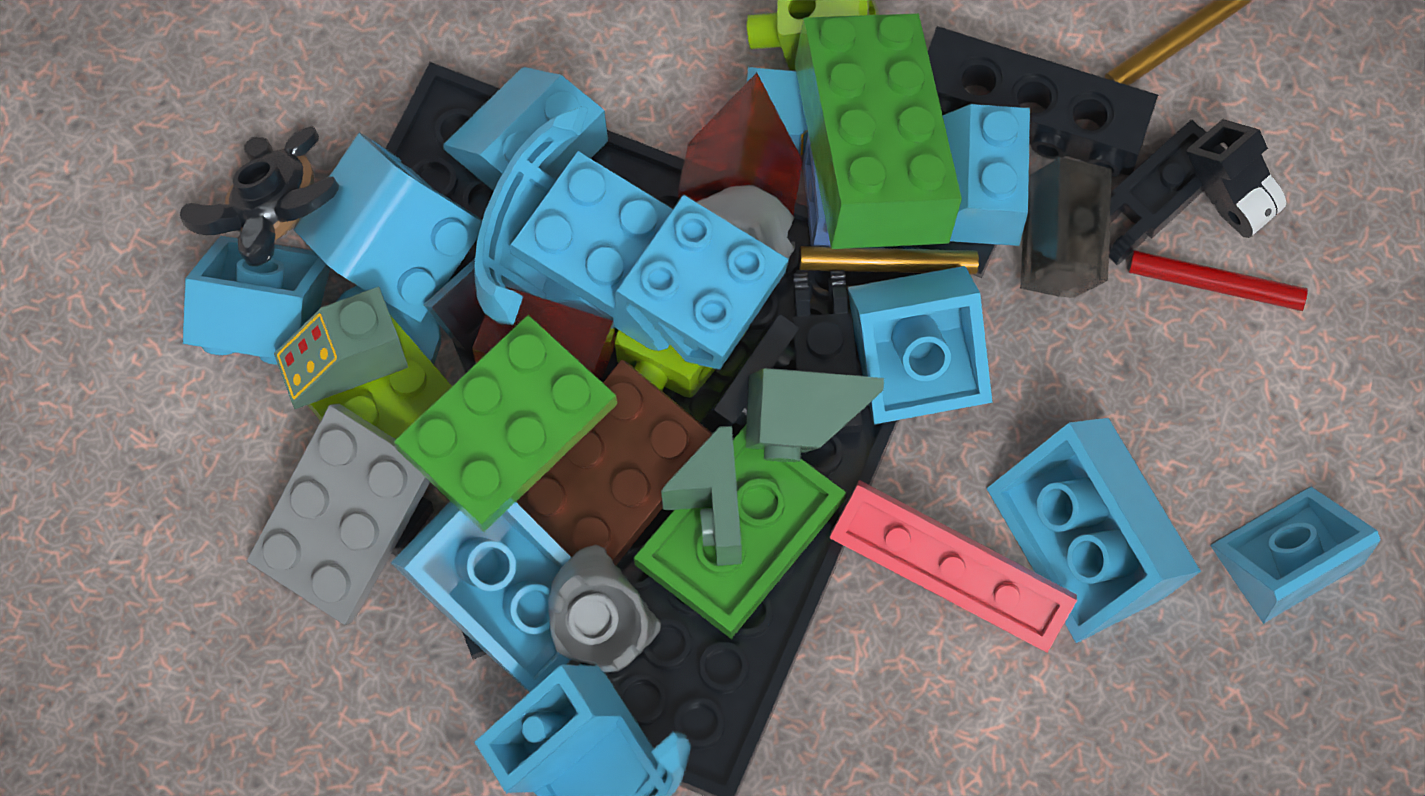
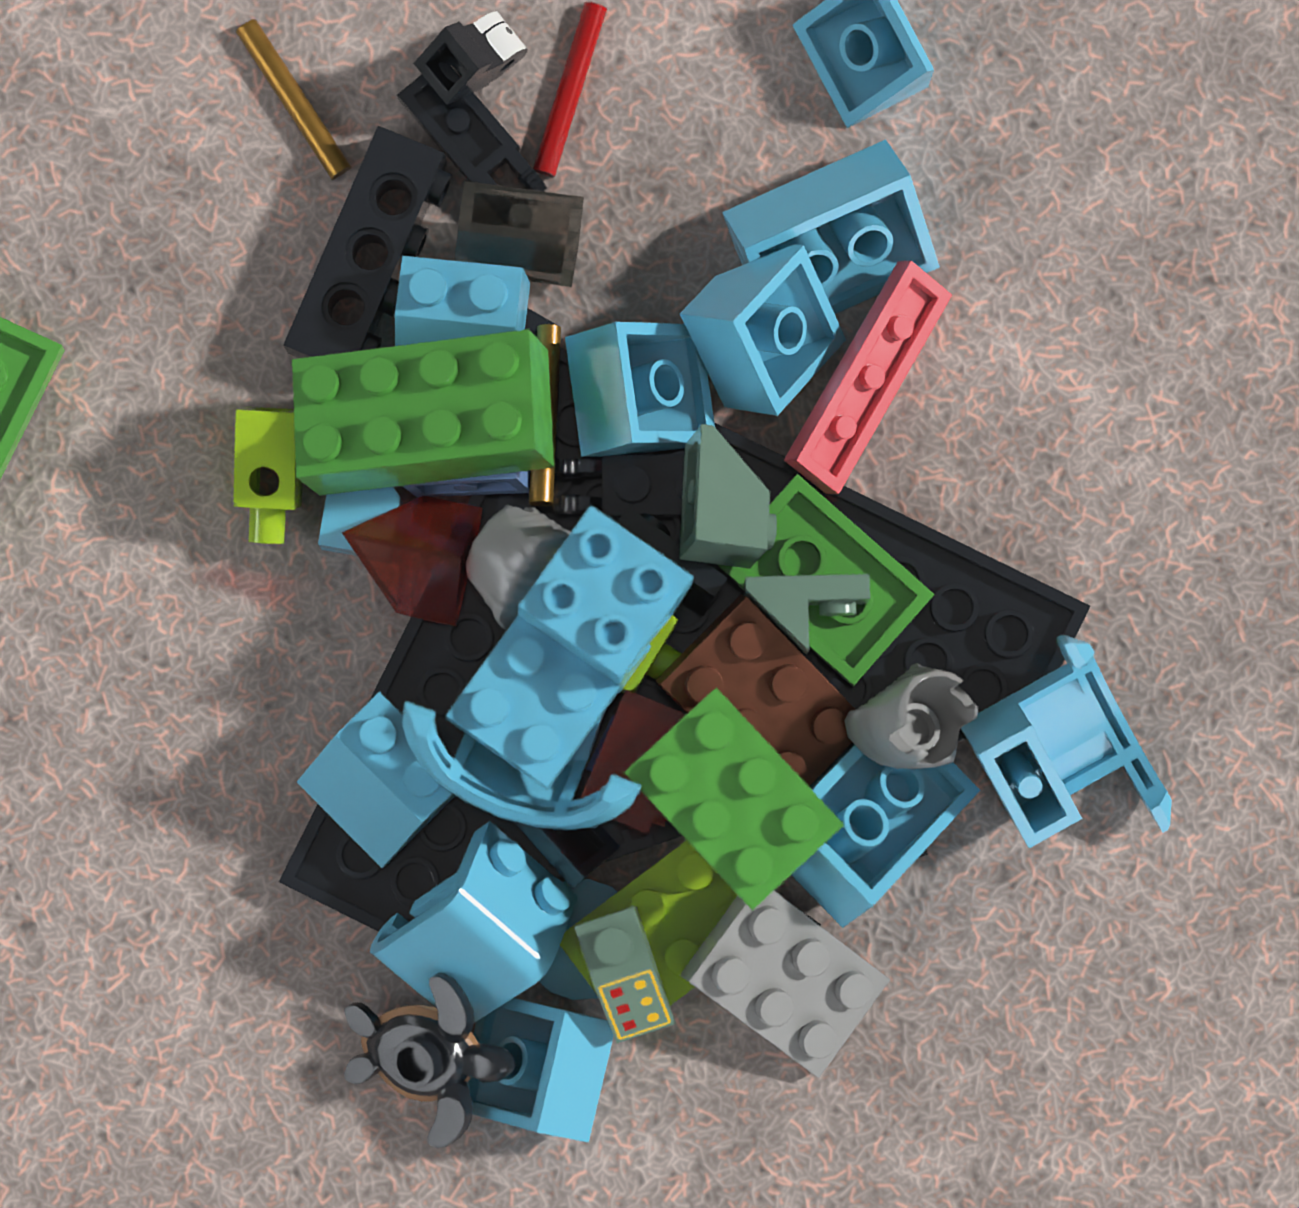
camera: 90 degrees left, 15 degrees up
(991, 457) = (764, 330): none -> medium azure slope

